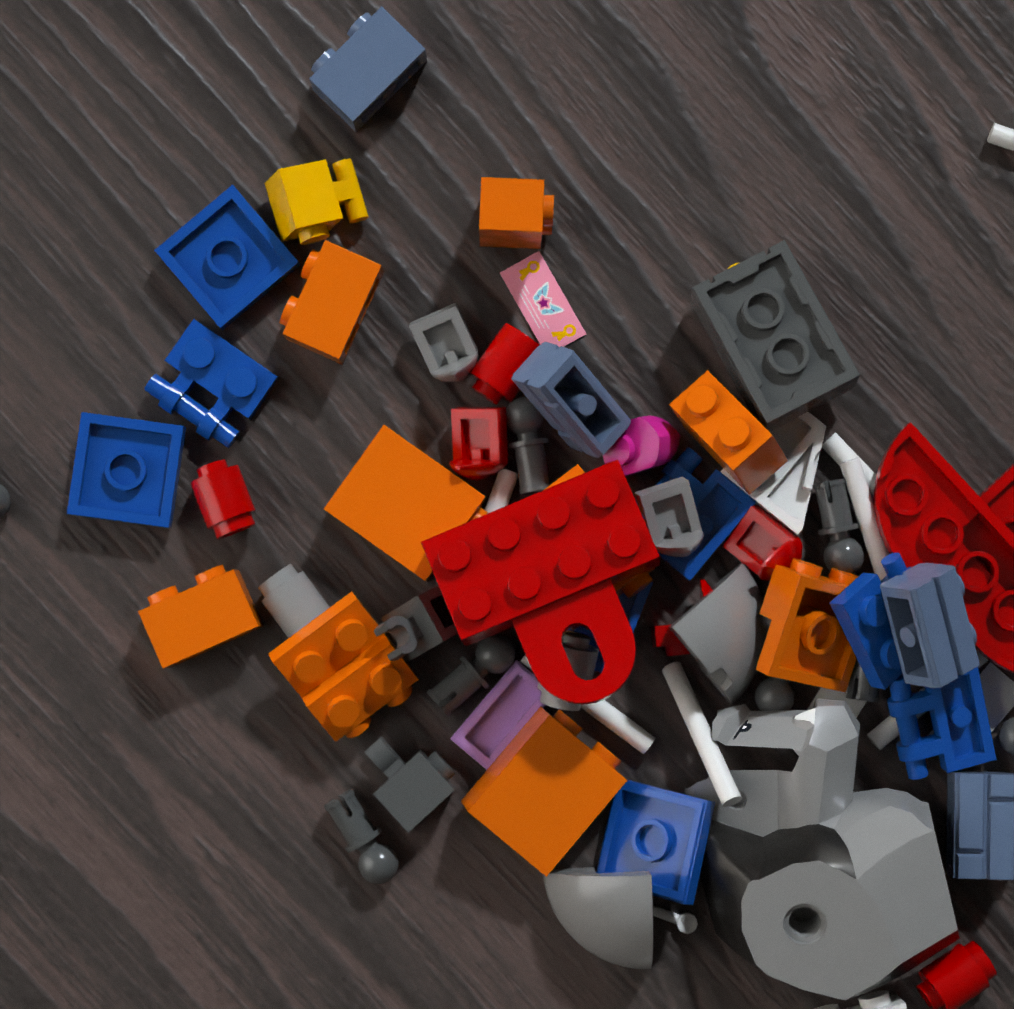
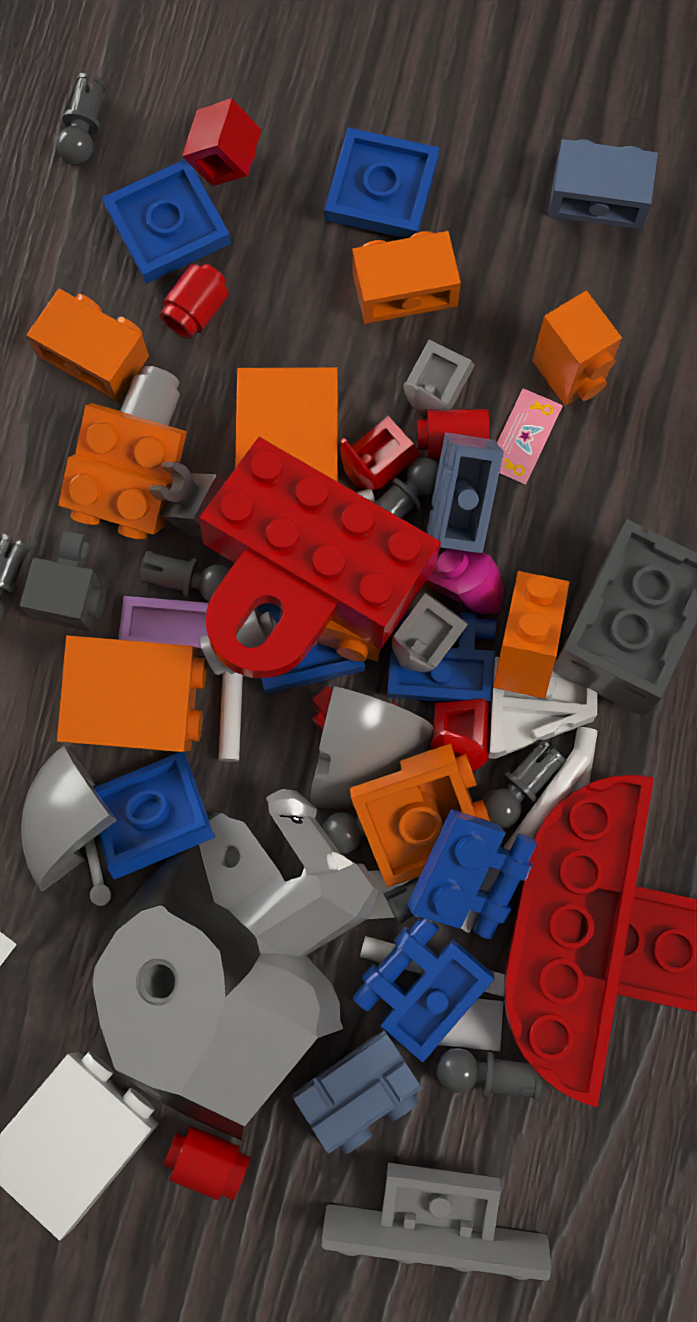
camera: 60 degrees right, 10 degrees down
(91, 371) = (222, 142): none -> red brick
(220, 370) = (293, 239): blue plate -> none
(309, 201) = (469, 209): yellow brick -> none
(701, 734) = (268, 784): white bar -> none
(930, 624) = (496, 910): sand blue brick -> none

